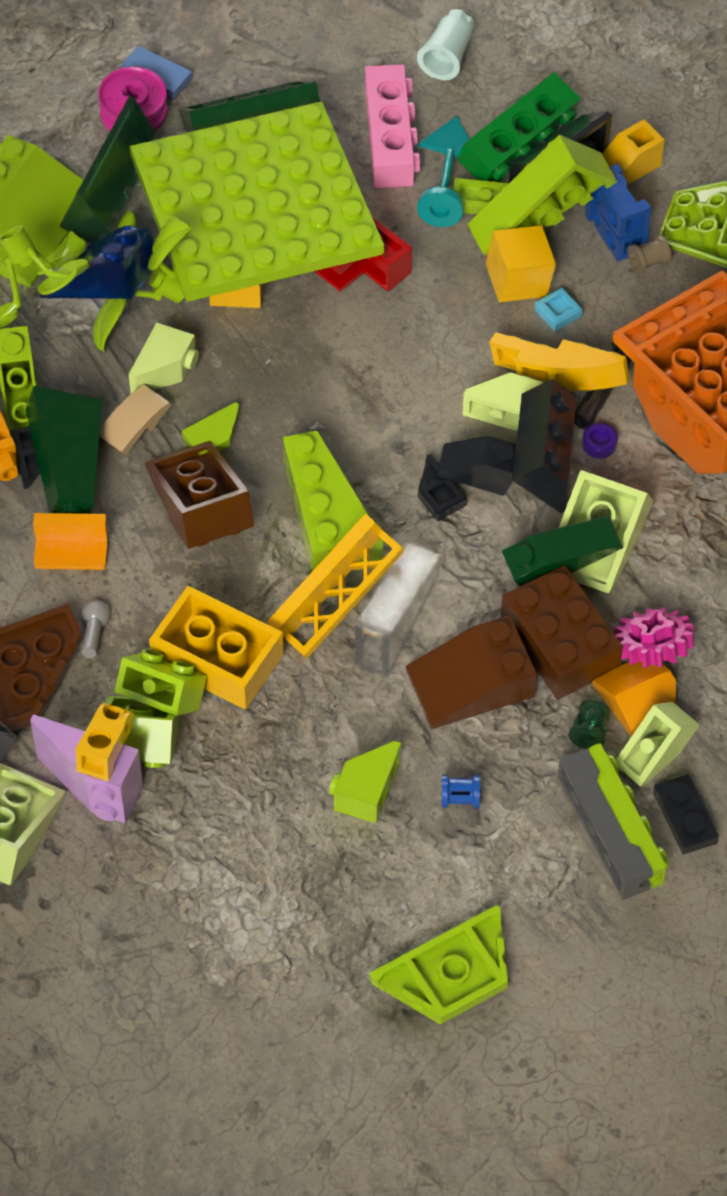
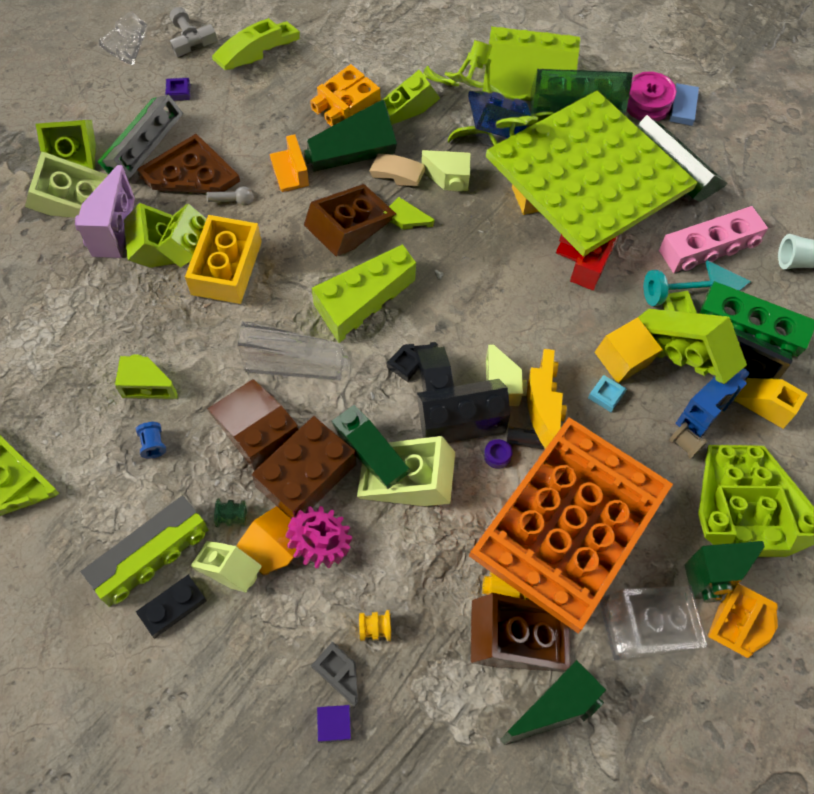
camera: 70 degrees right, 5 degrees up
(103, 741) = (100, 200): yellow leg -> none
(325, 579) = (296, 304): yellow fence -> none

